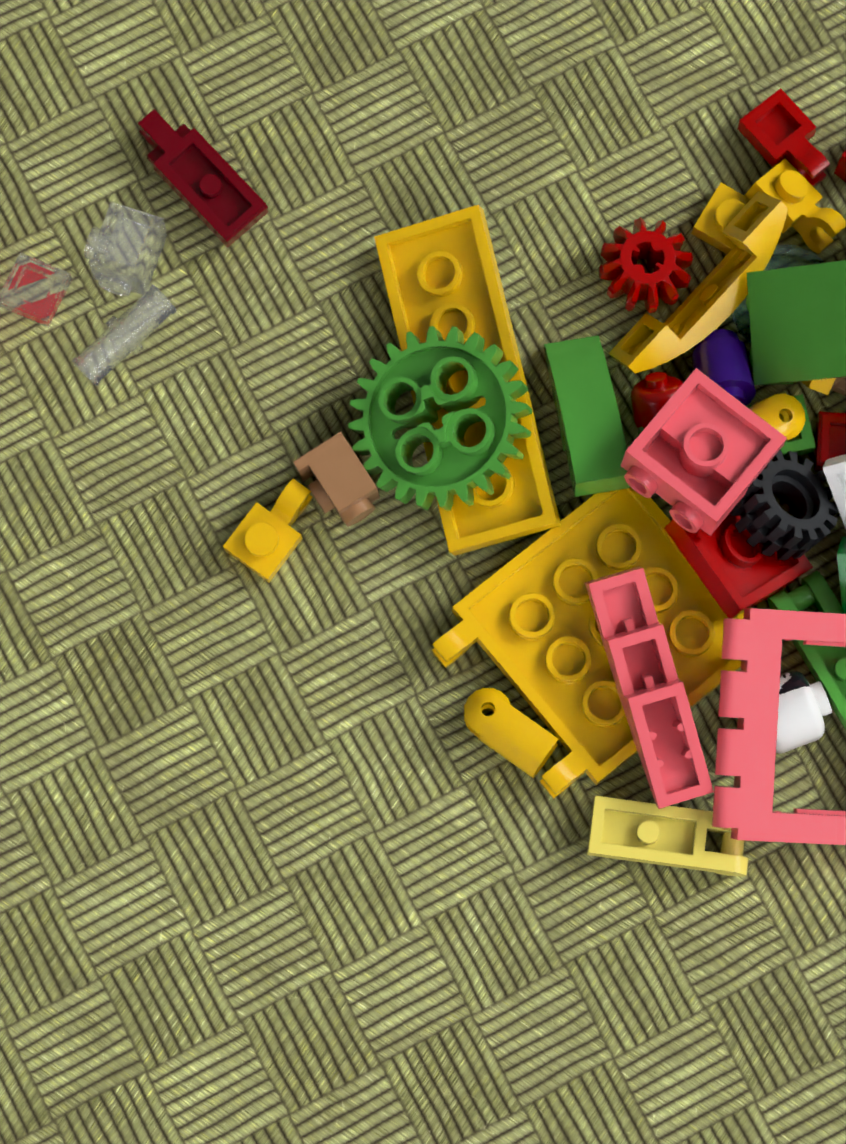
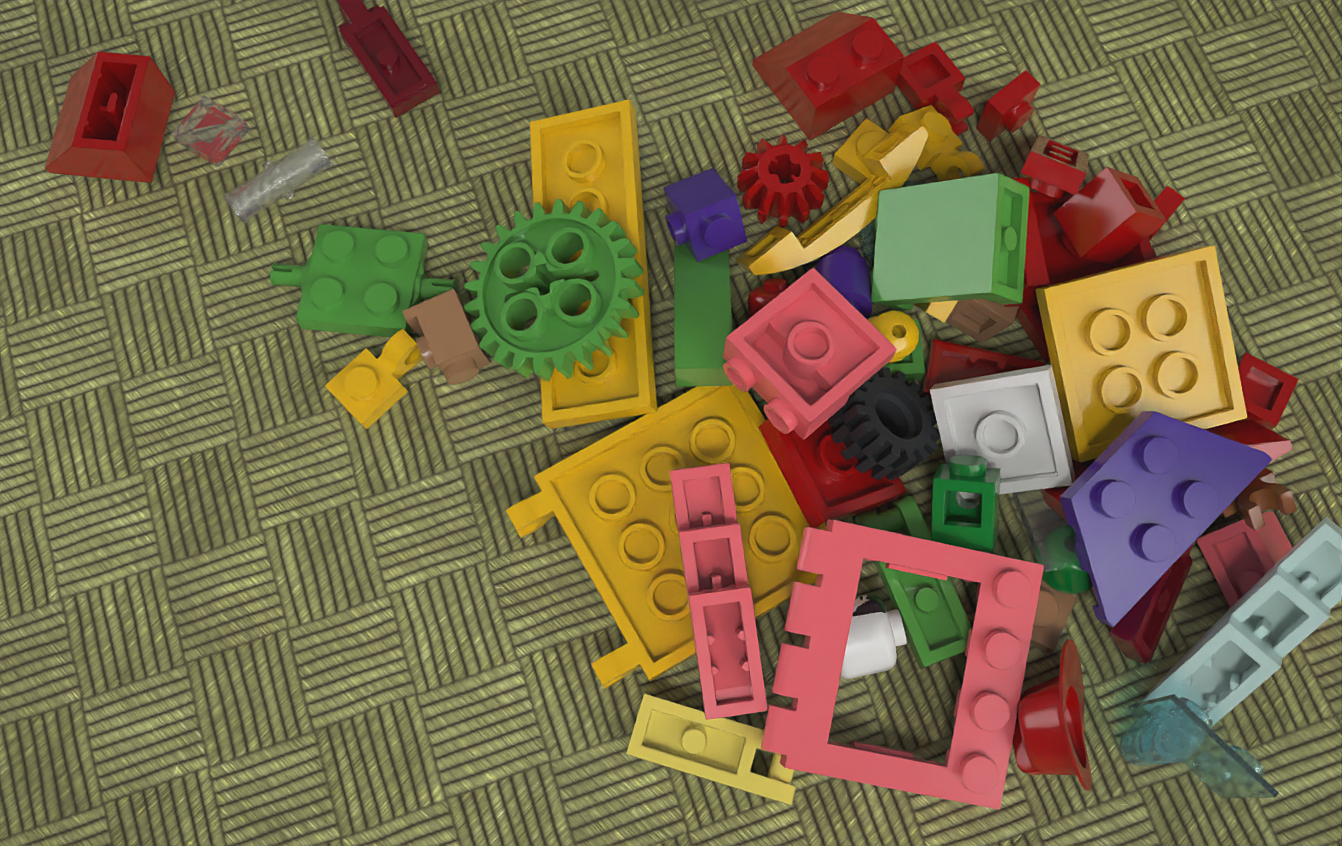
camera: 15 degrees right, 5 degrees down
(125, 249) = (298, 102): clear brick -> none
(235, 431) = (361, 280): none -> bright green plate
(508, 730) = (567, 612): yellow piece -> none
(573, 315) = (704, 215): none -> dark purple brick
(673, 132) = (831, 70): none -> red slope

